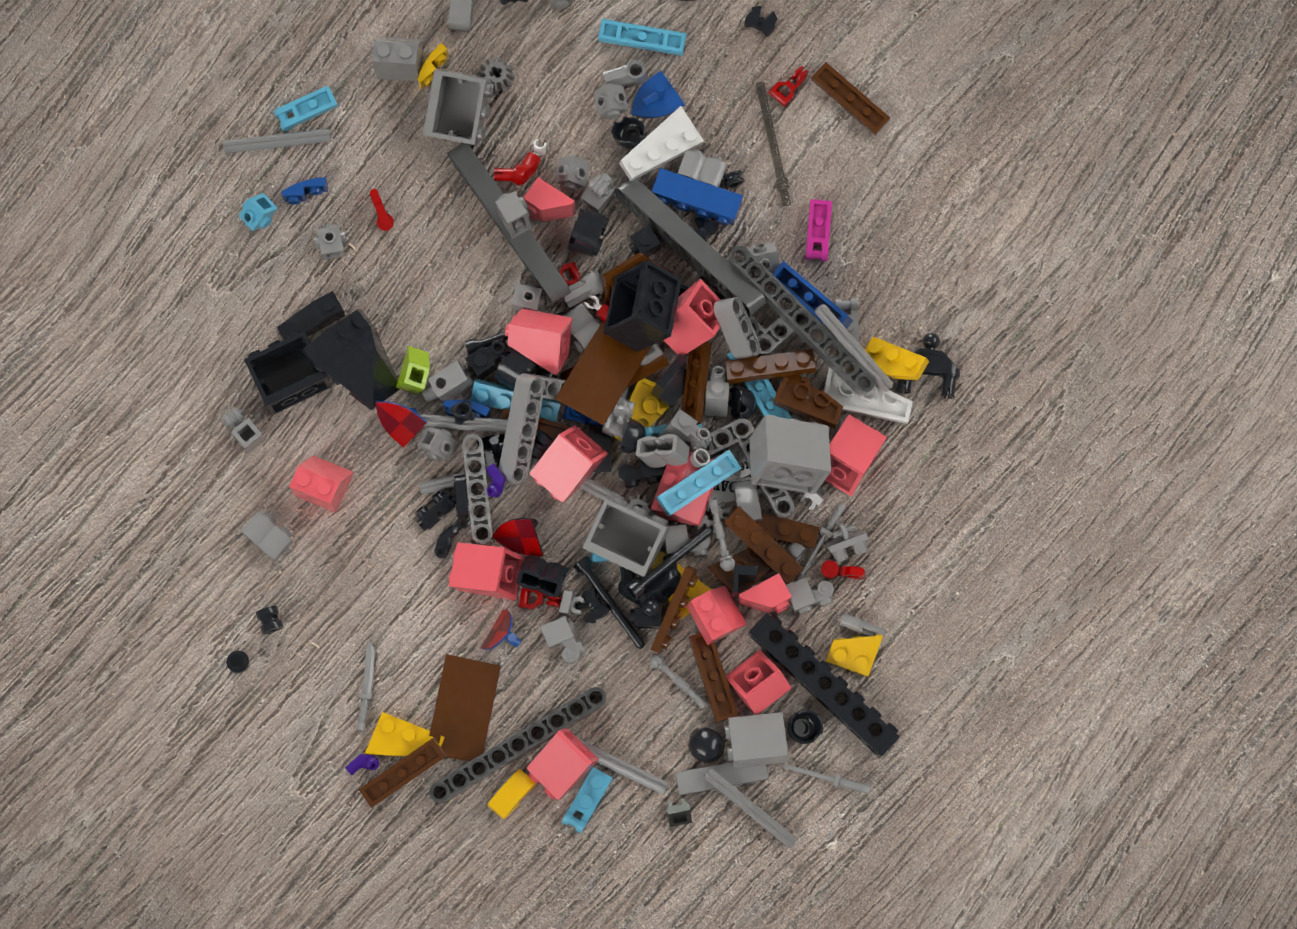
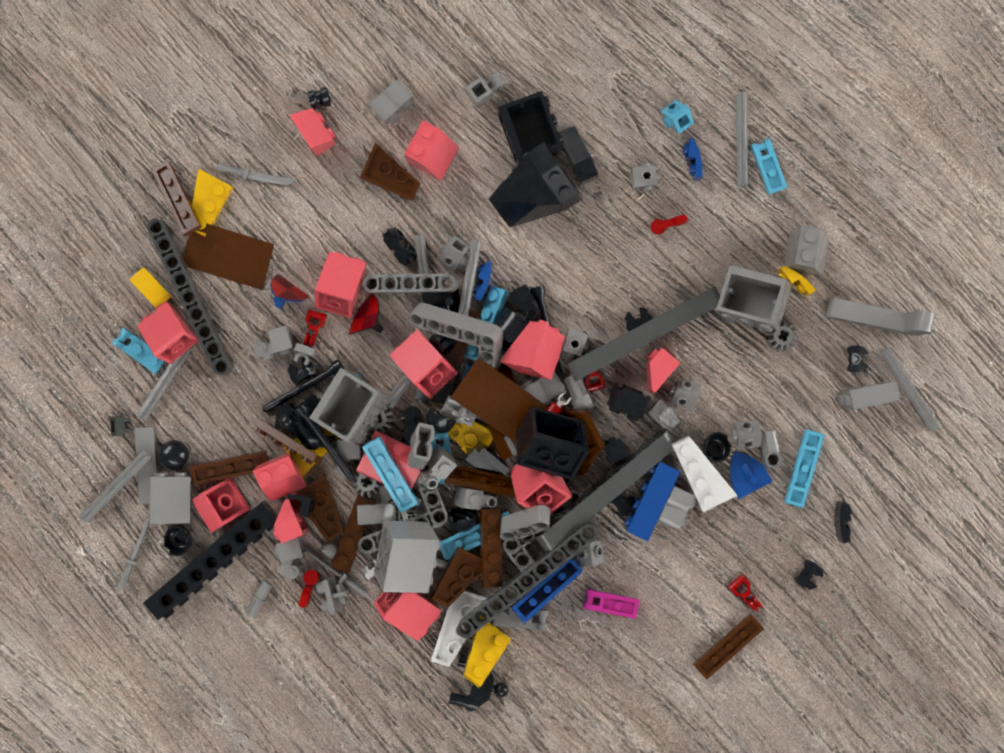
camera: 90 degrees right, 10 degrees up
(237, 661) = (288, 69): black plate -> none
(309, 620) = (313, 130): none -> coral slope
(352, 531) = (389, 175): none -> reddish brown wing
(362, 761) = (192, 168): dark purple arm -> none
(399, 421) = (476, 222): shield -> none
(414, 370) = (522, 240): lime slope -> none
(444, 540) = (373, 252): black arm -> none
(456, 379) = (508, 273): light grey torso -> none
(461, 496) = (405, 269): black beam -> none
(462, 407) = (480, 271): black plate -> none
(497, 483) = (412, 301): dark purple arm -> none
(498, 239) = (632, 323): none -> black piece
(513, 213) = (647, 337): light grey brick -> none
(524, 170) = (691, 352): red arm -> none
(542, 576) = (330, 331): black brick -> none
(657, 661) = (246, 424): light grey piece -> none
(700, 458) = (414, 479): light grey hinge -> none
(726, 562) = (323, 490): light grey piece -> none
(733, 179) = (665, 534): black bush -> none
(763, 545) = (334, 523): reddish brown plate -> none
(782, 183) = (657, 576): clear smoke bar -> none
(853, 347) = (496, 623): light grey axle -> none
(855, 653) = (236, 590): yellow wing -> none

